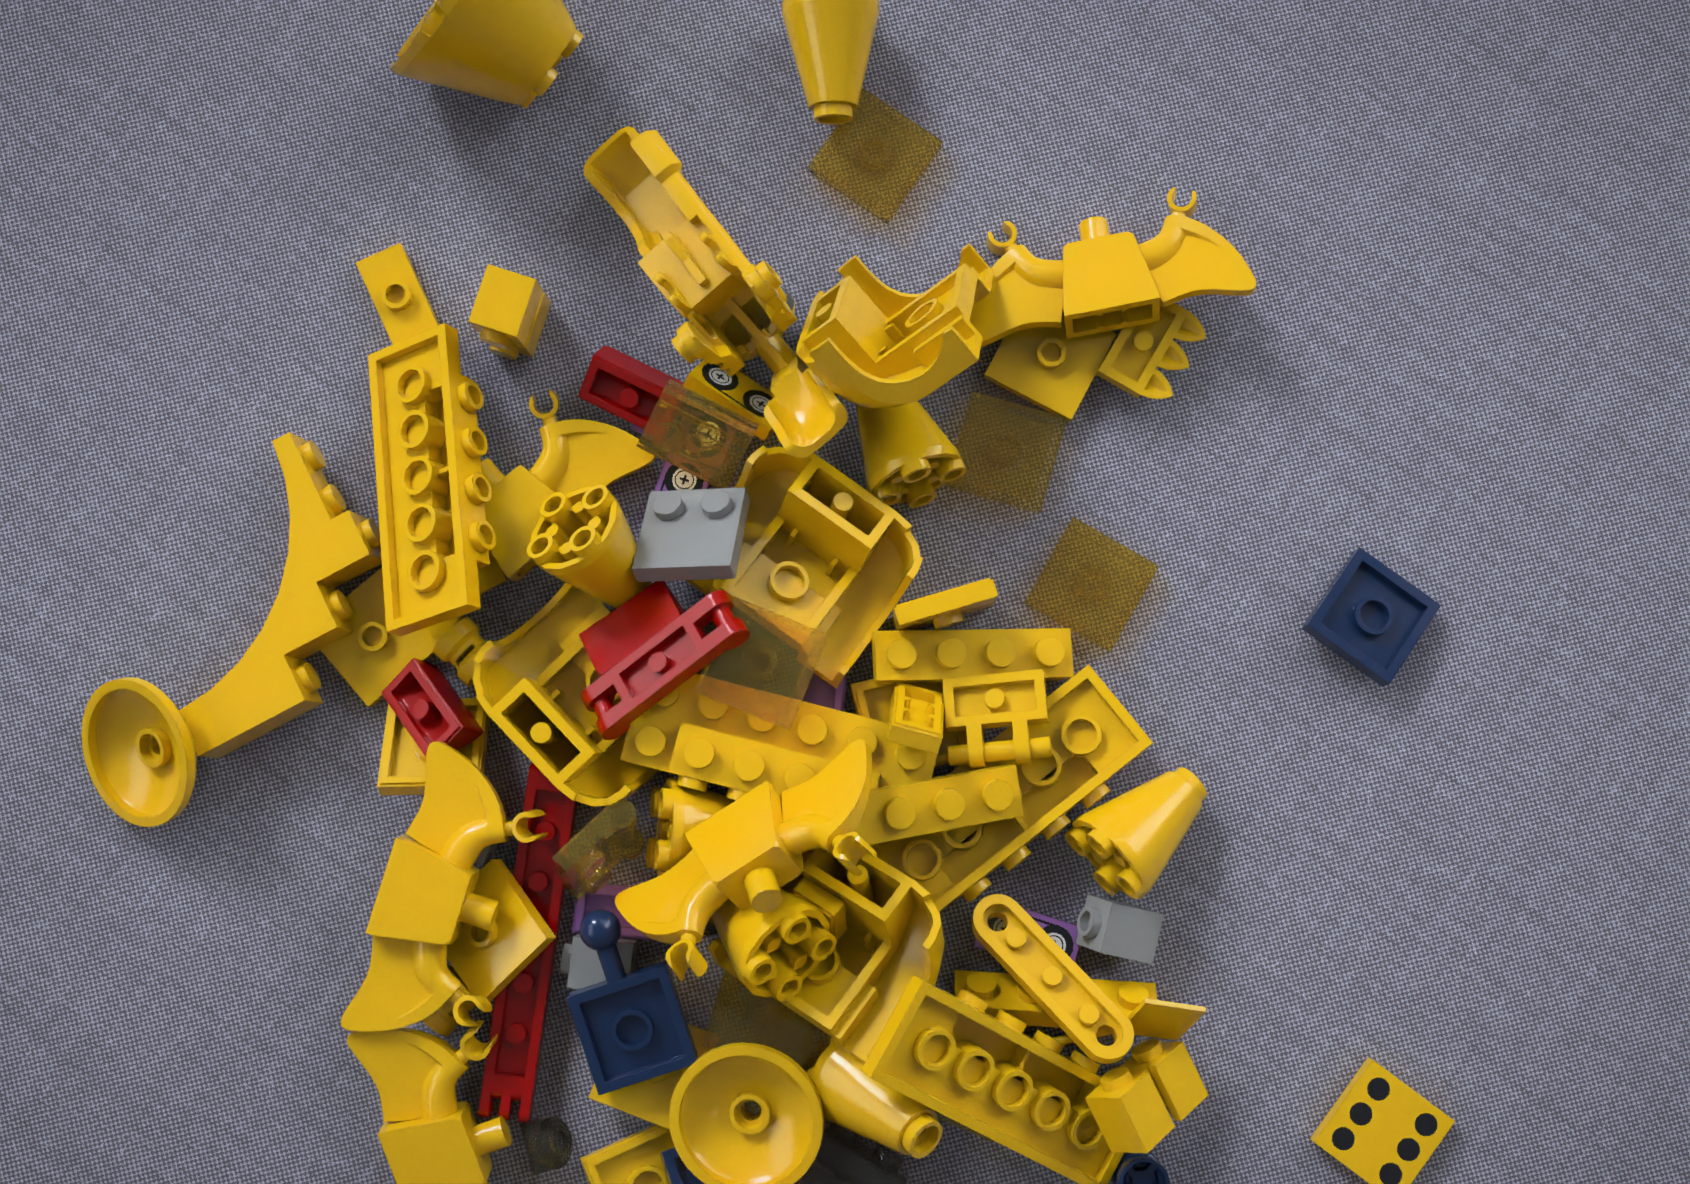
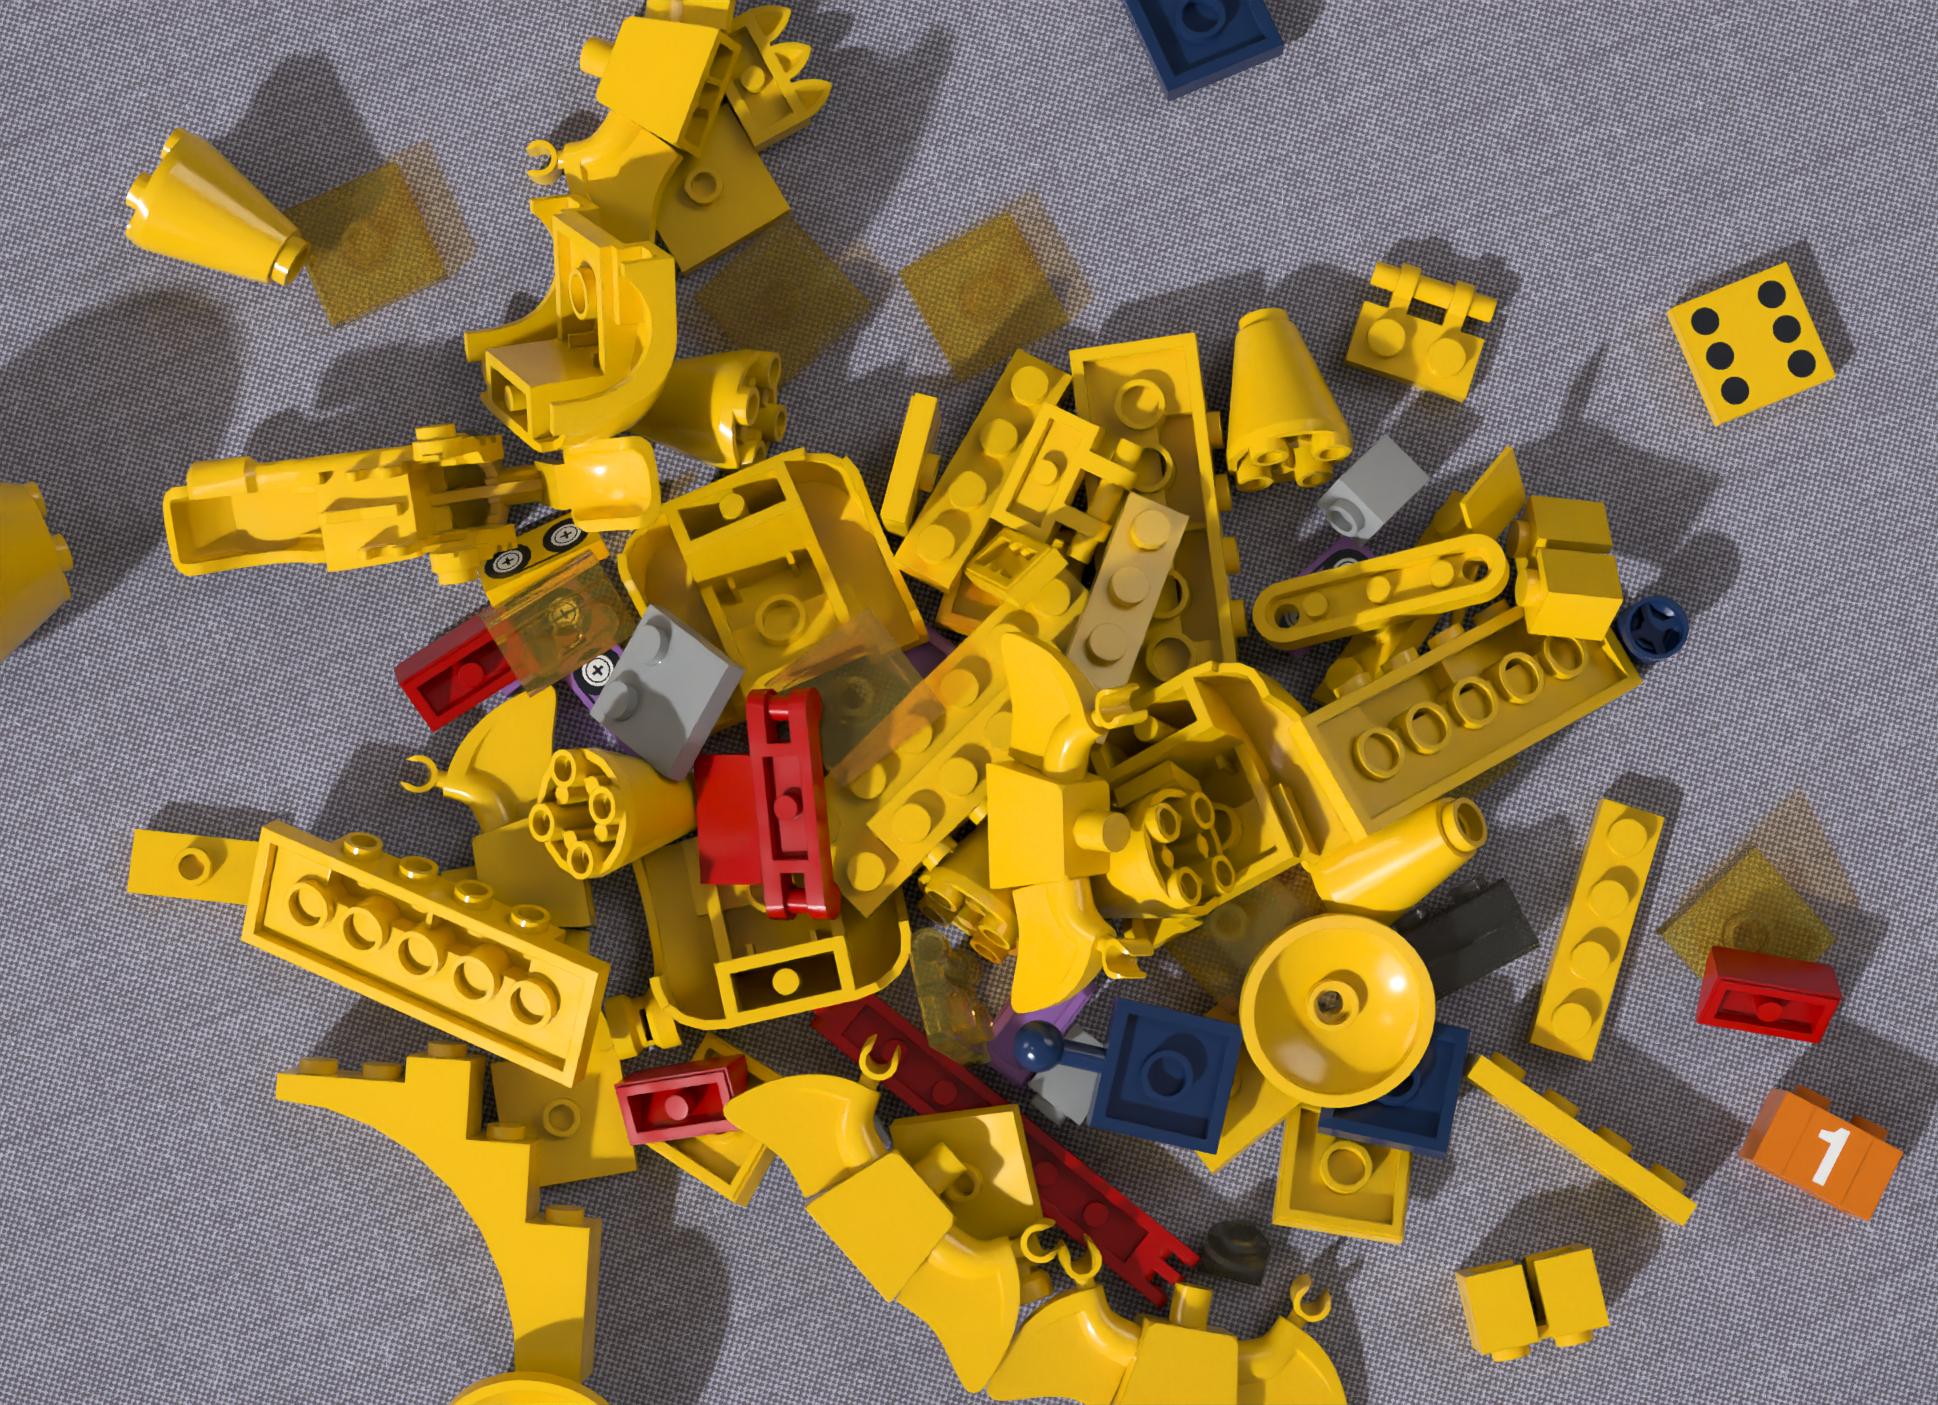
camera: 60 degrees left, 0 degrees up
(509, 312) = (294, 748): yellow piece -> none
(1235, 898) = (1414, 349): none -> yellow plate

